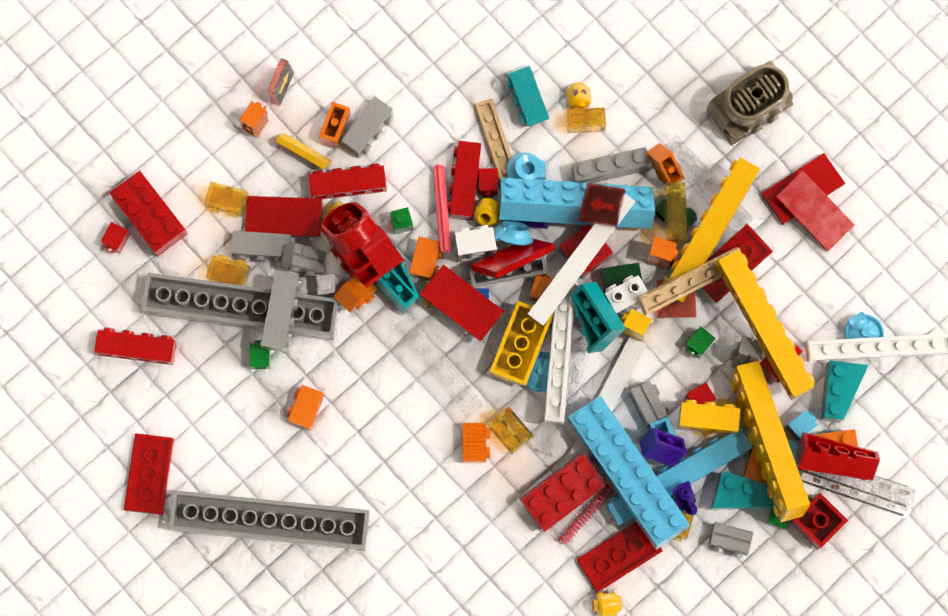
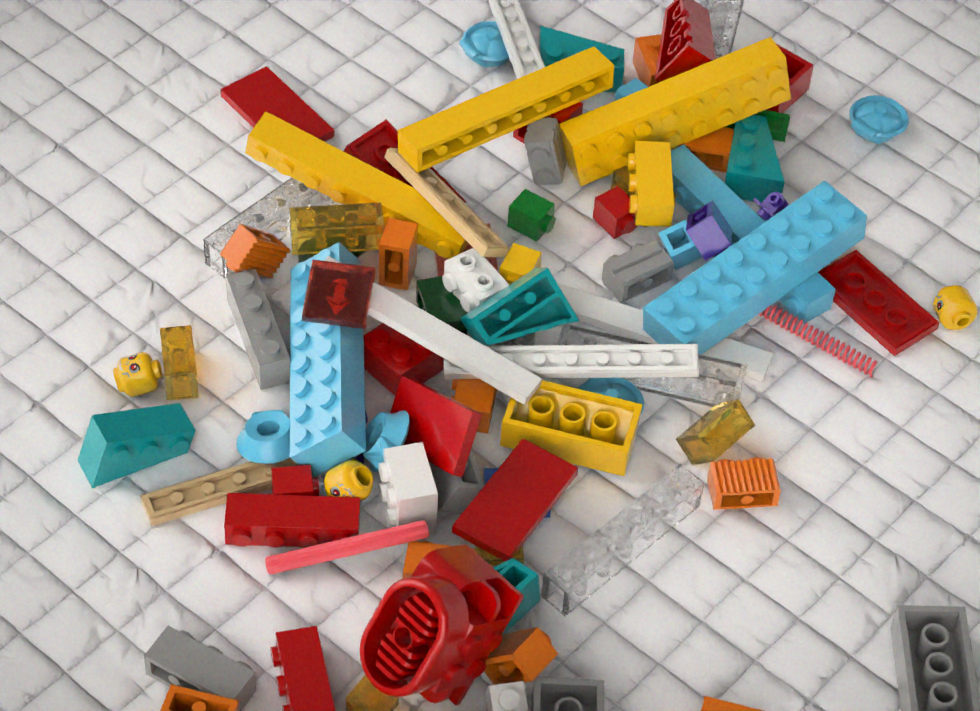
camera: 95 degrees left, 30 degrees down
(401, 220) = (366, 599): green brick -> none
(562, 492) = (800, 362): red brick -> none
(730, 539) = (820, 165): light grey brick -> none
(740, 112) = (145, 151): dark tan brick -> none
(782, 590) = (878, 118): none -> medium azure piece
(814, 210) = (313, 93): tile -> none

